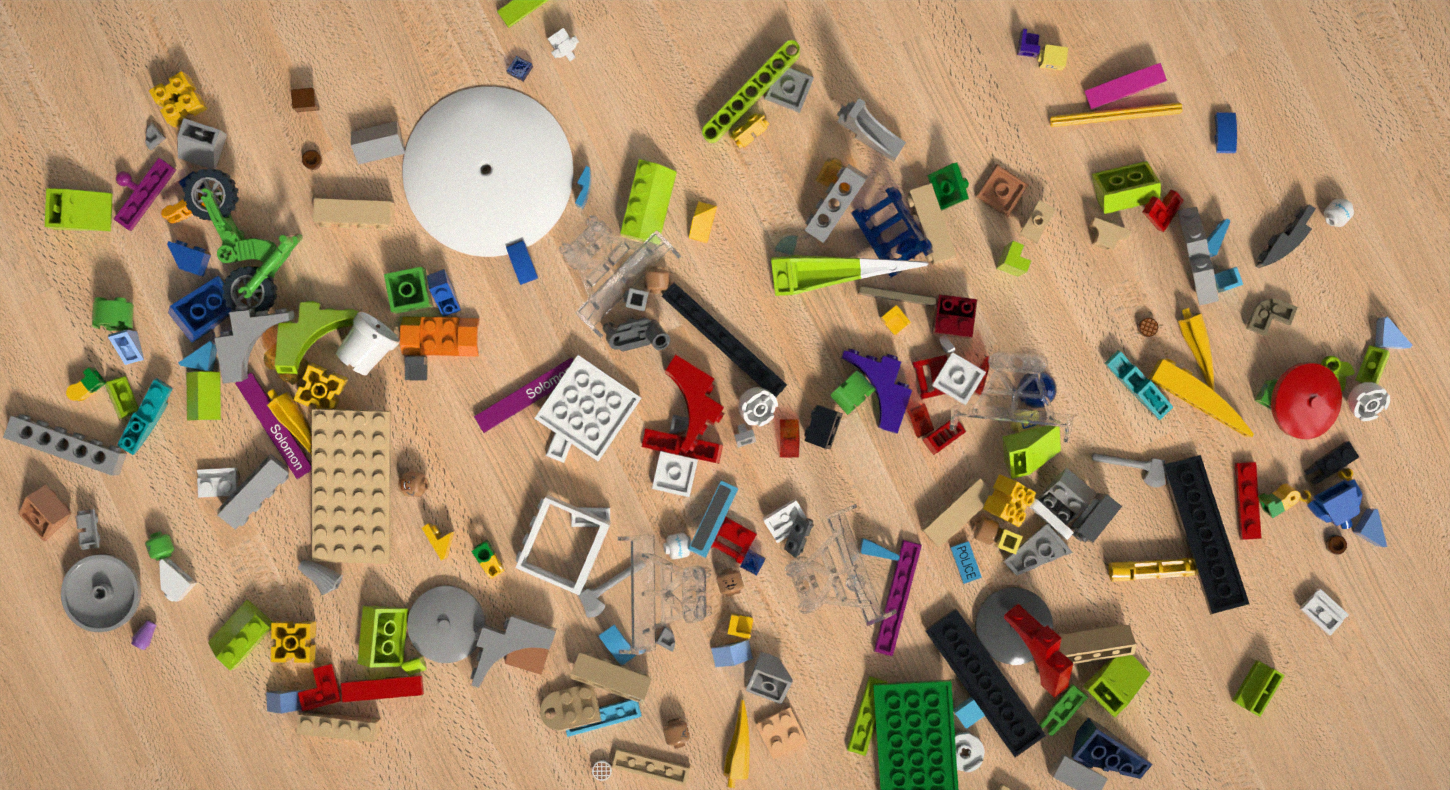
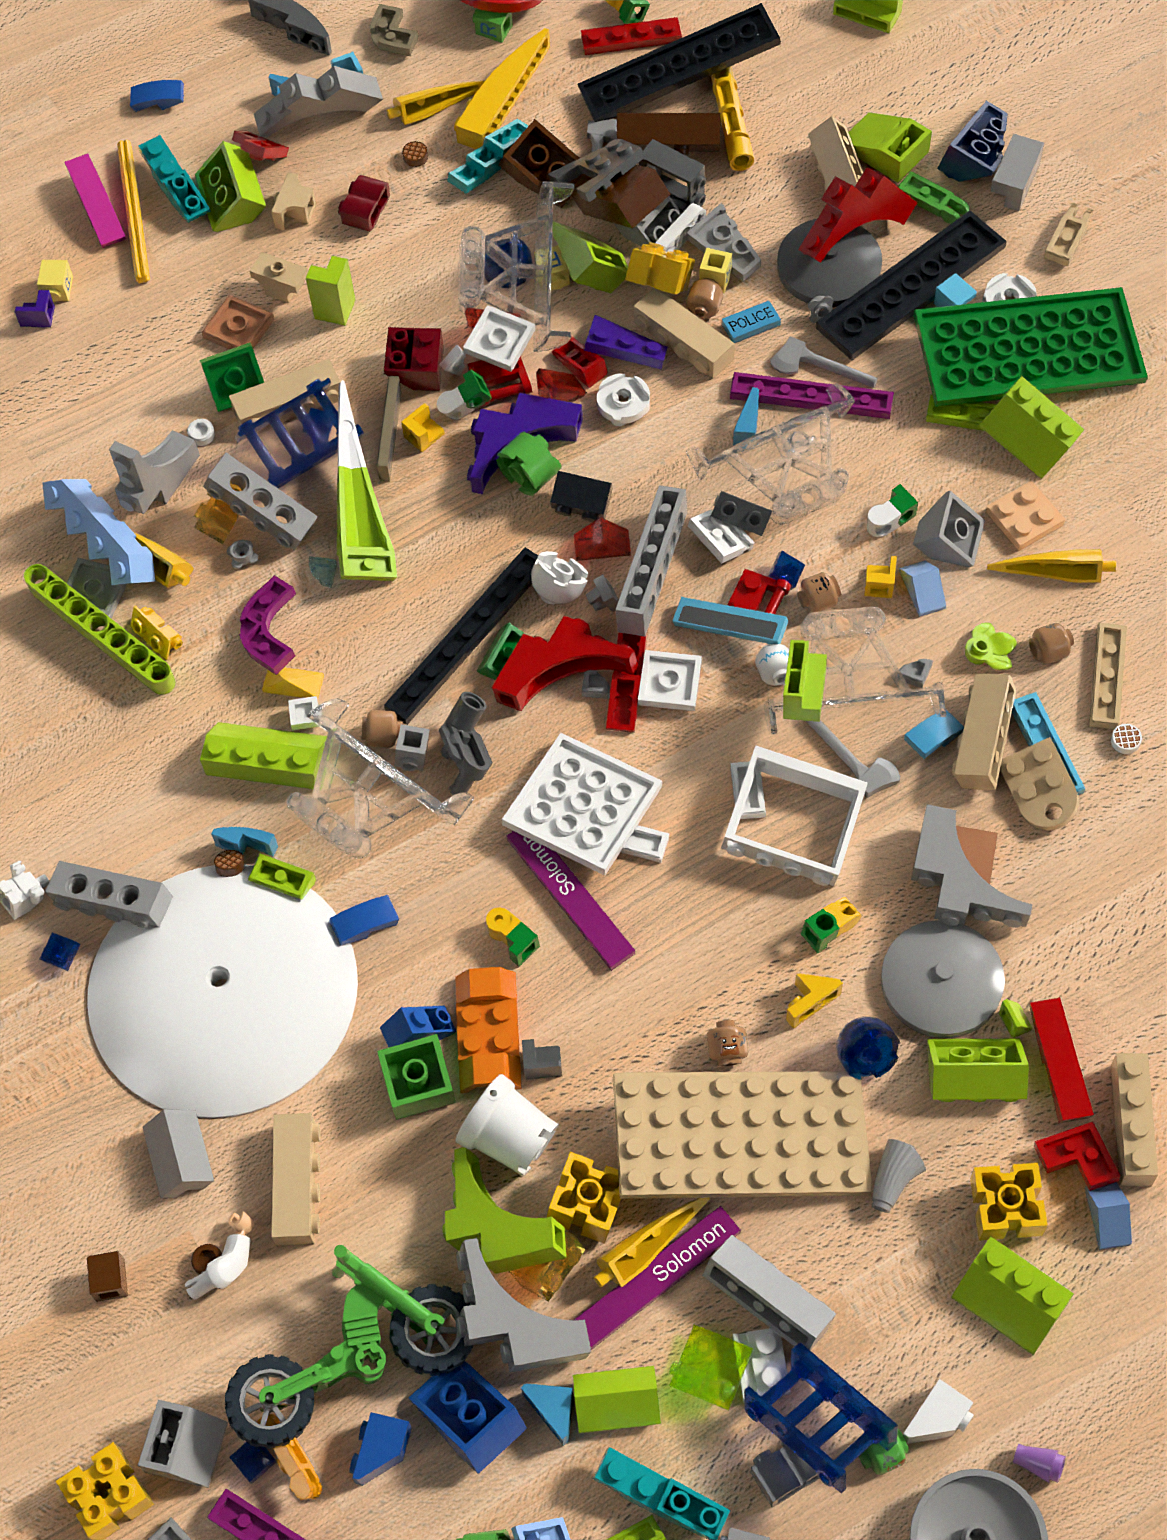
camera: 90 degrees left, 25 degrees down
(153, 491) = (781, 1474): none -> dark grey brick
(175, 531) = (828, 1387): none -> clear blue fence
(216, 453) = (710, 1367): none -> clear neon green hinge
(303, 172) = (230, 1264): none -> white arm
(401, 569) = (867, 1047): none -> clear blue cylinder
(499, 359) = (515, 934): none -> leg
(543, 126) = (149, 896): none -> light grey brick
(555, 211) = (282, 876): none -> lime slope
(570, 177) = (229, 863): none -> reddish brown tile
(643, 562) = (804, 683): none -> lime piece
(675, 229) = (298, 712): none -> white plate
(679, 695) = (990, 647): none -> lime plate
(710, 363) = (500, 651): none -> green slope
(746, 198) = (256, 622): none -> magenta plate
(761, 470) = (651, 561): none -> light grey brick
(789, 641) = (892, 514): none -> leg
(805, 132) = (168, 566): none -> yellow piece
(805, 185) = (240, 547): none -> light grey plate
(819, 97) = (105, 533): none -> light blue brick
(845, 748) = (1031, 427): none -> lime slope
(911, 162) = (201, 431): none -> white tile
(912, 347) = (465, 397): none -> leg
(916, 468) = (623, 412): none -> white plate
(936, 590) = (795, 351): none -> light grey piece
(952, 468) = (621, 343): none -> dark purple wing
(969, 613) = (818, 303): none -> light grey plate
(1076, 476) = (627, 199): none -> reddish brown brick
(1102, 287) = (364, 203): none -> dark red brick
(1102, 472) = (601, 166): none -> dark grey wing
(1121, 424) = (535, 156): none -> reddish brown slope
(1137, 145) = (173, 179): none -> teal slope
(1137, 519) = (676, 130): none -> reddish brown brick

